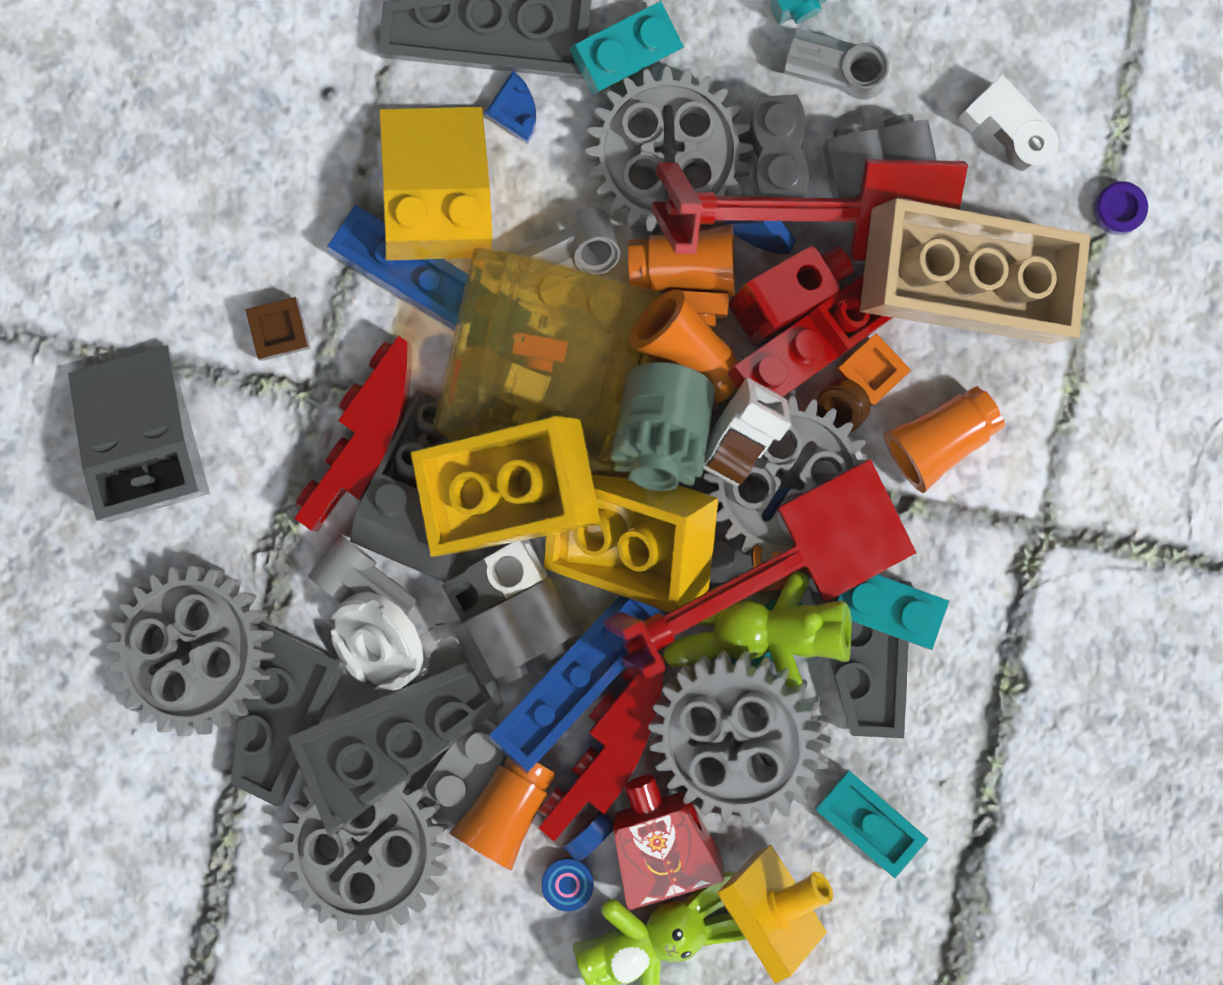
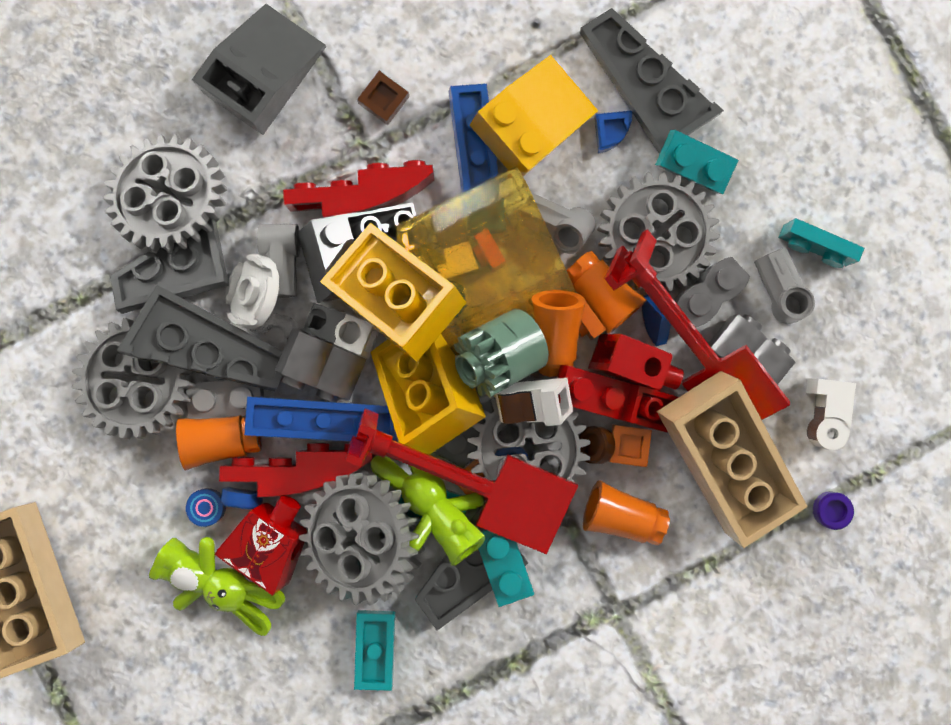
camera: 45 degrees right, 0 degrees up
(776, 911) = (279, 639): yellow tile -> none

